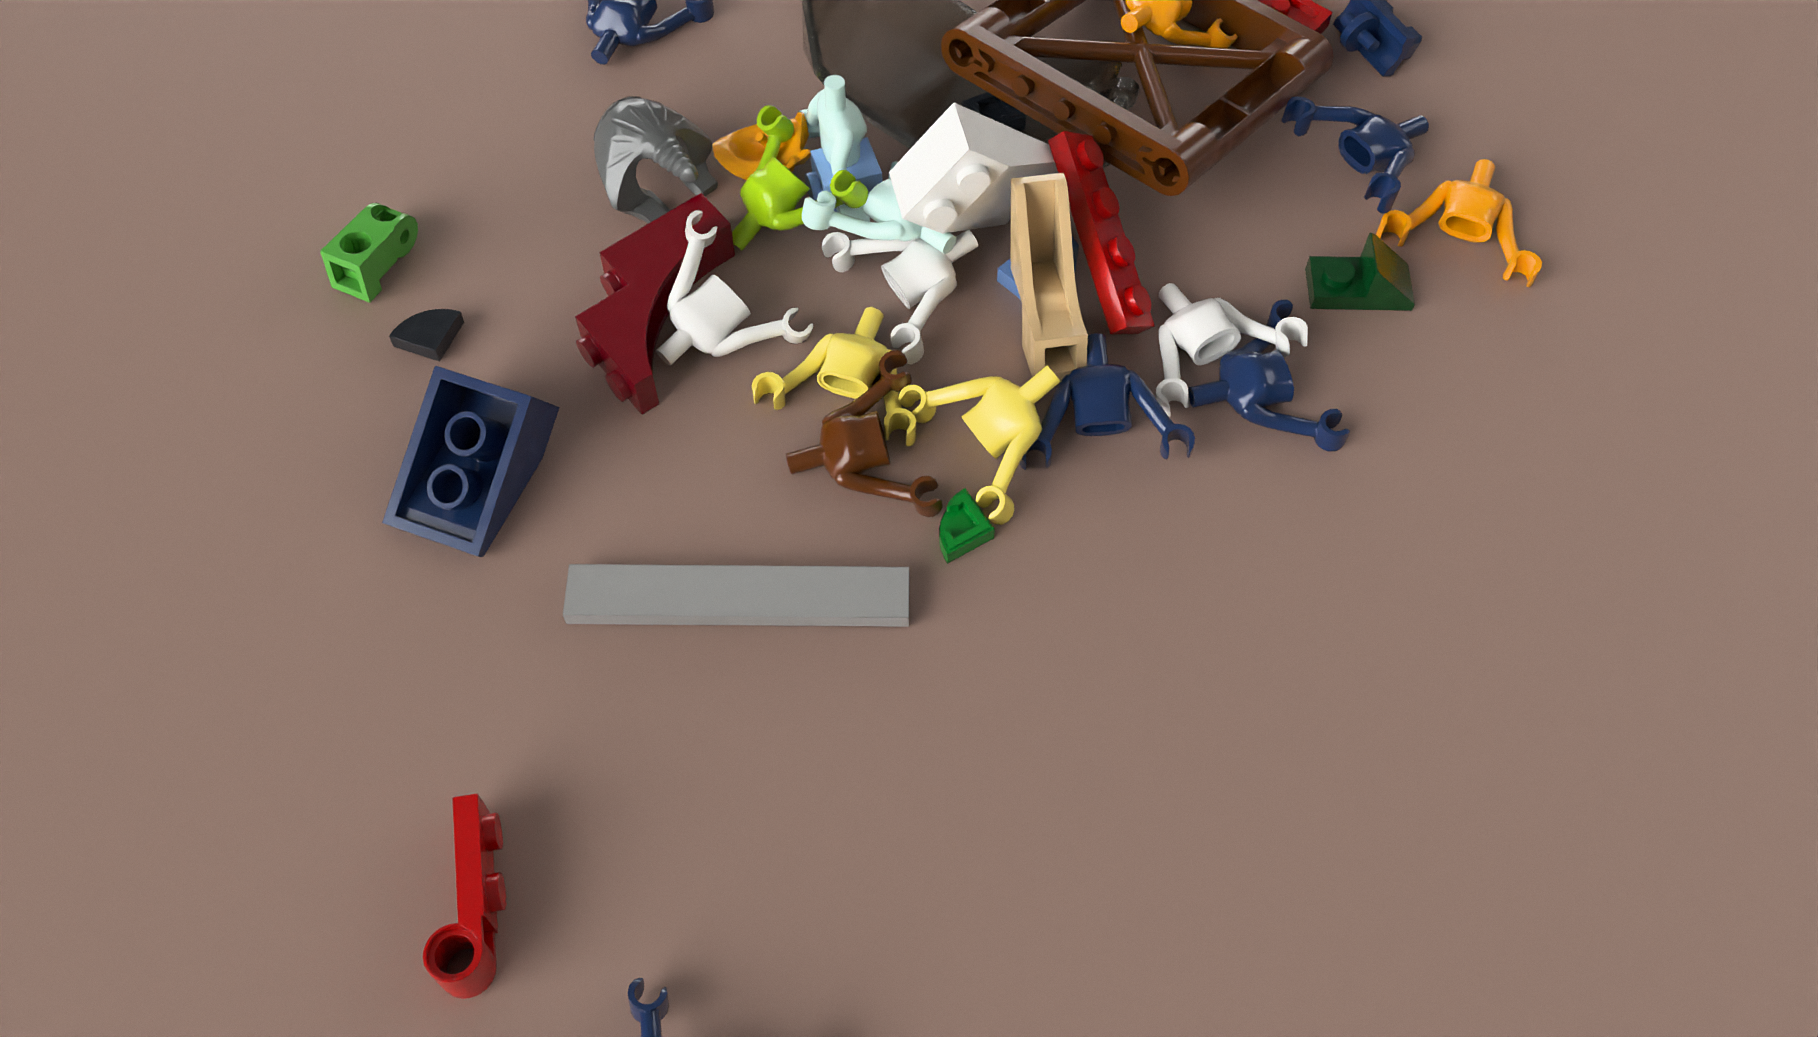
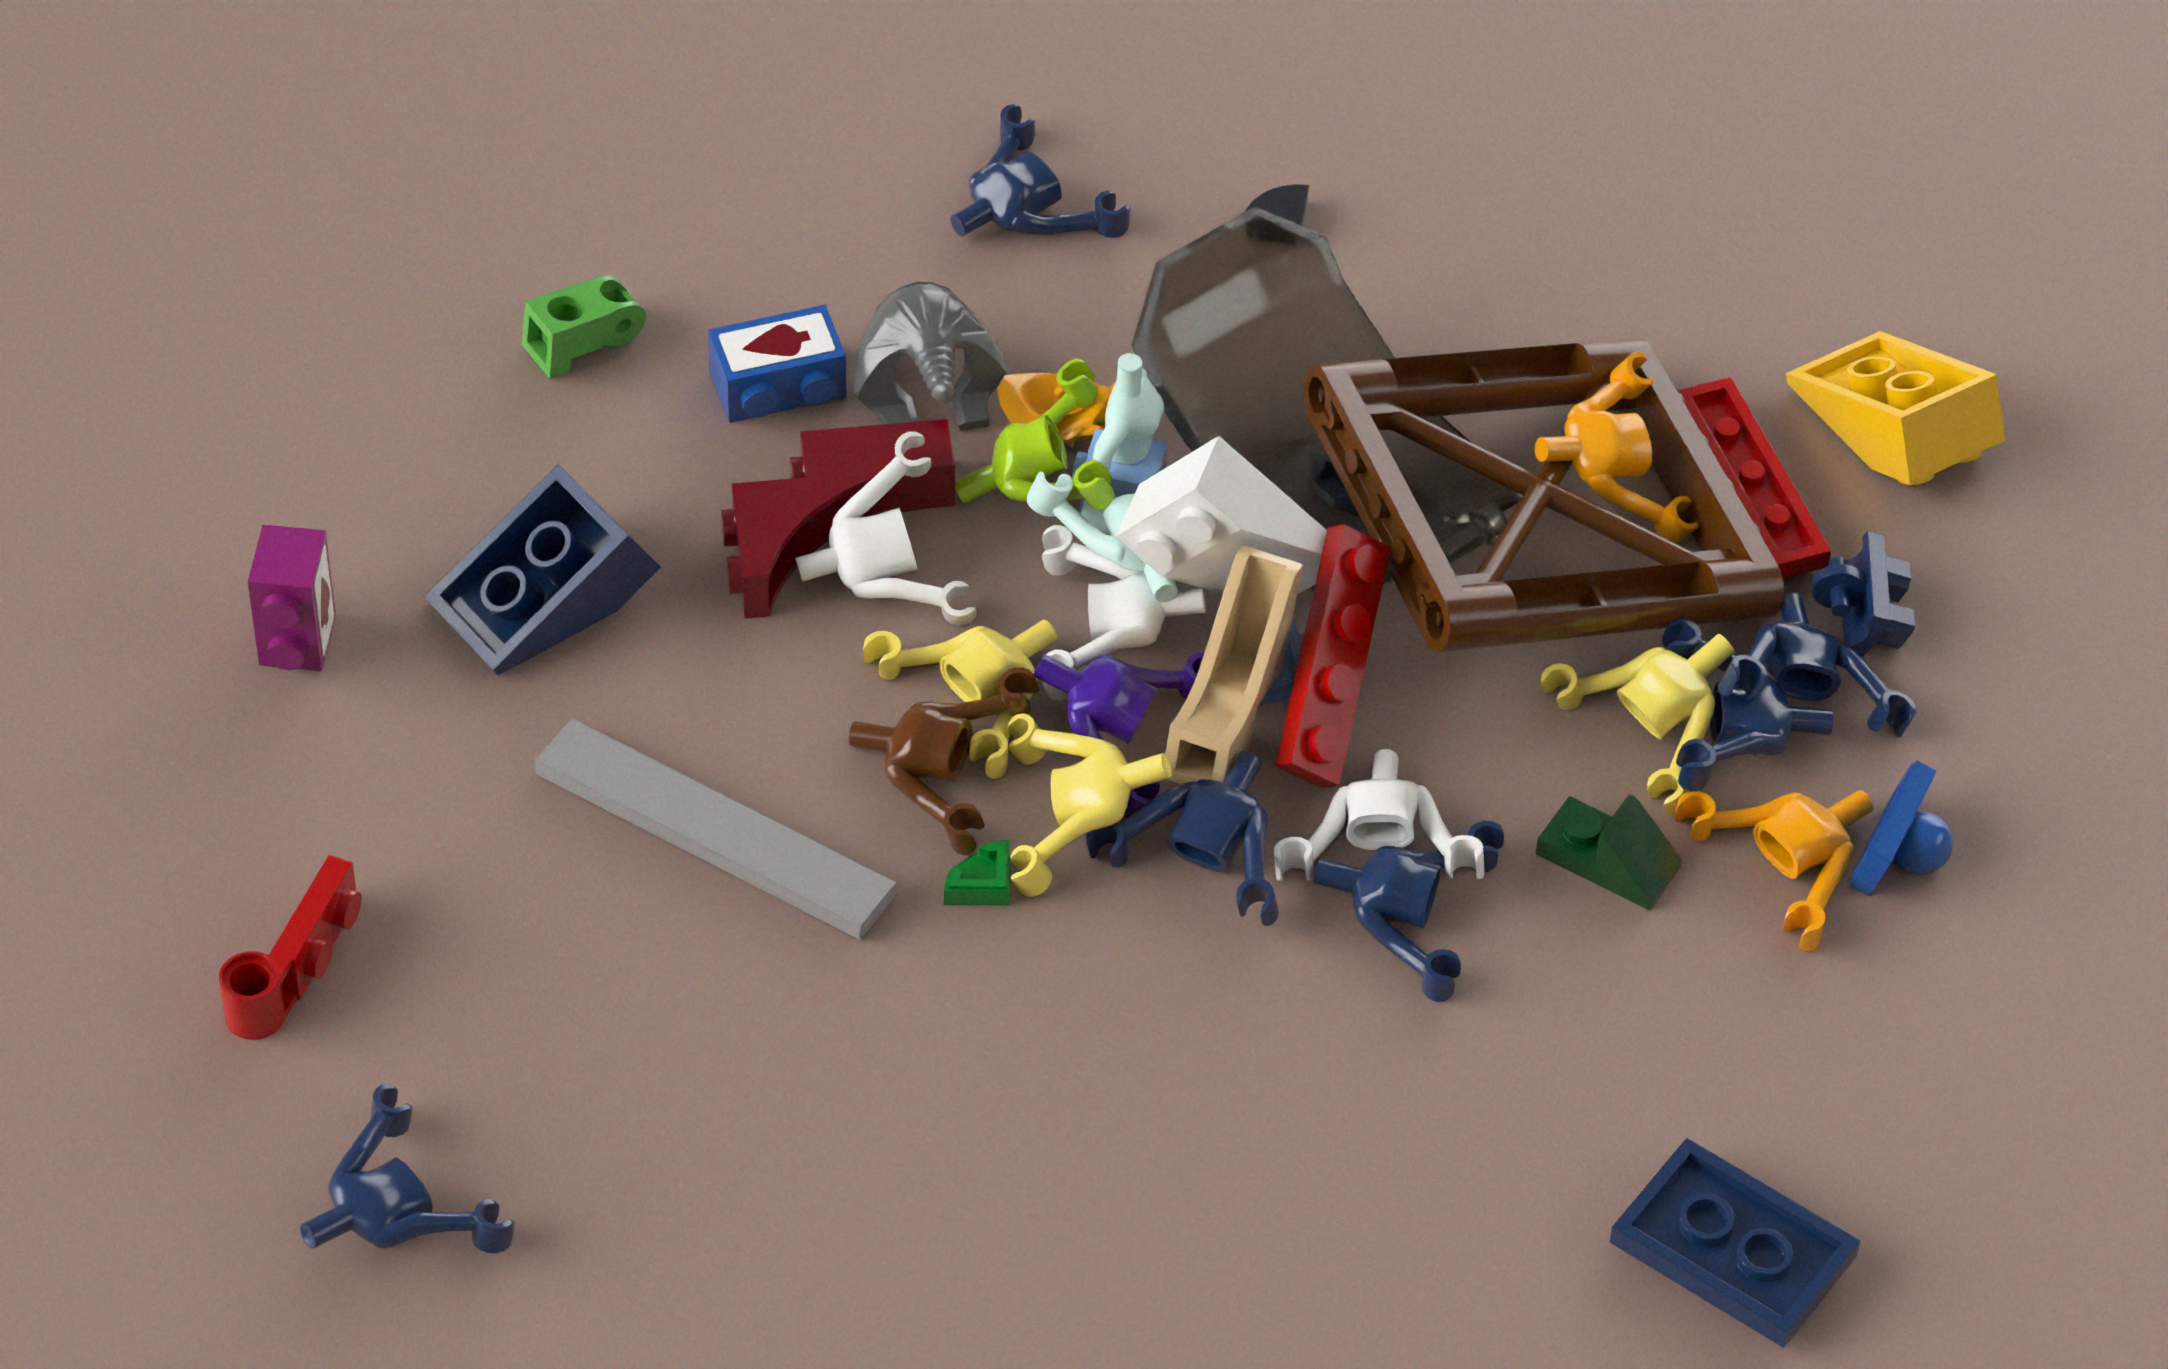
camera: 30 degrees right, 10 degrees down
(277, 583) = (291, 597): none -> magenta brick
(428, 332) = (586, 435): black tile -> none
(540, 211) = (777, 363): none -> blue brick
(962, 338) = (1113, 700): none -> dark purple piece
(1316, 160) = (1659, 694): none -> light yellow piece
(1385, 92) = (1806, 669): none -> dark blue piece
(1527, 174) = (1911, 837): none -> blue tile
(1683, 524) = (1735, 1242): none -> dark blue plate

